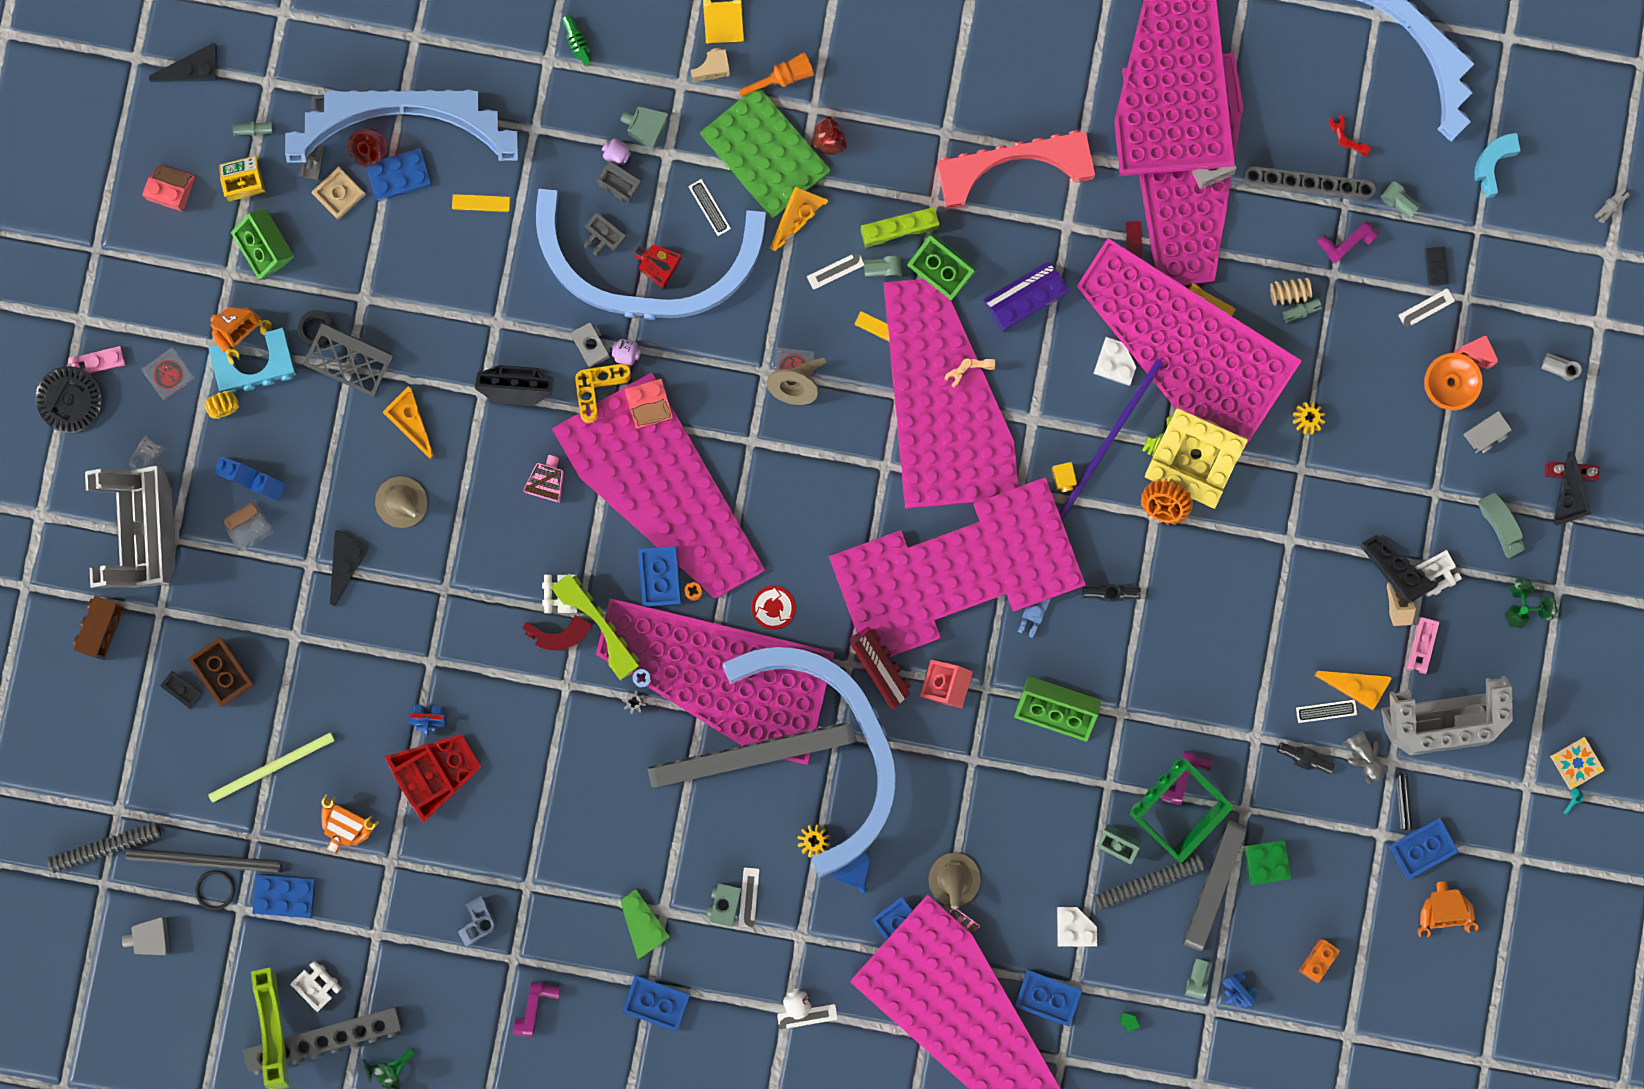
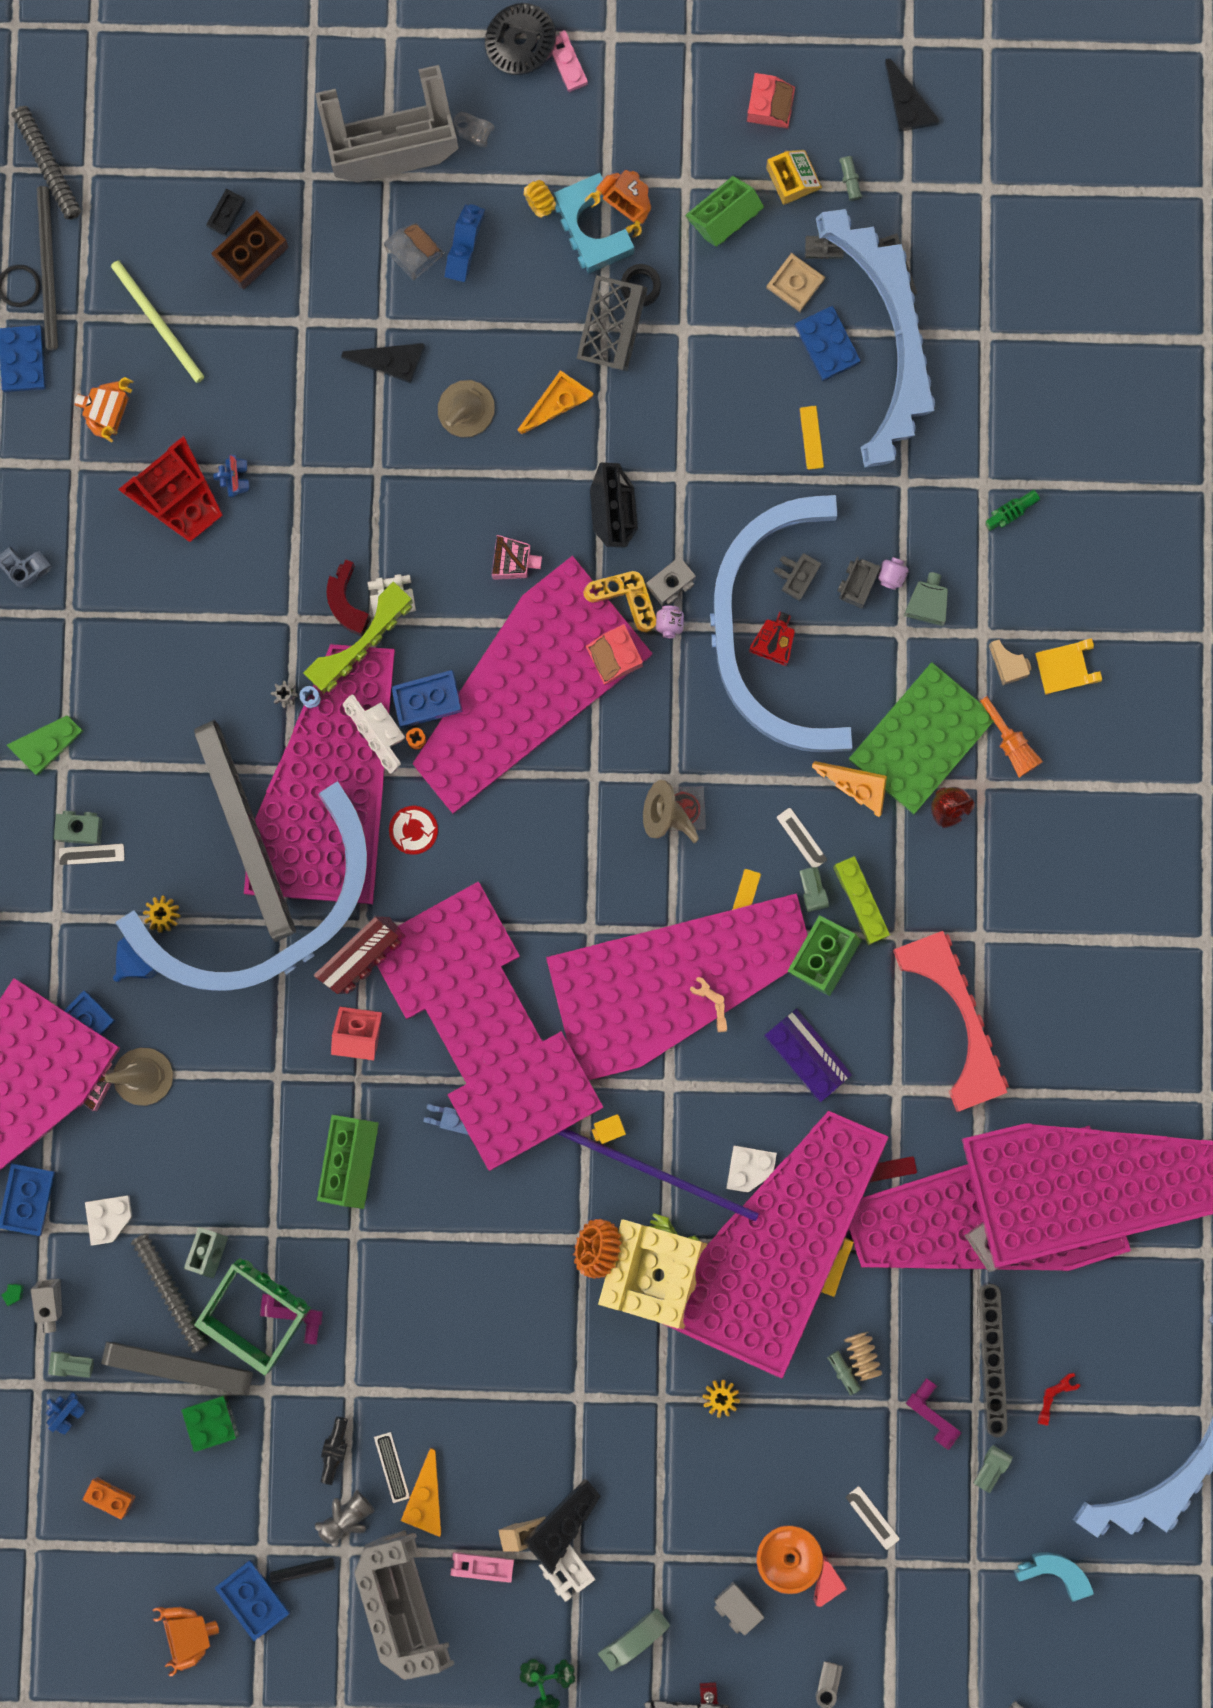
camera: 90 degrees right, 0 degrees up
(98, 627) = (277, 113): reddish brown brick -> none
(168, 374) = (566, 137): clear tile -> none
(367, 146) = (851, 302): clear red cylinder -> none
(680, 623) = (377, 729): none -> white bracket
(709, 207) = (849, 687): sticker -> none
(1101, 593) = (487, 1215): black pin -> none
(1142, 991) = (47, 1295): none -> light grey torso
(1436, 266) = (922, 1522): black plate -> none

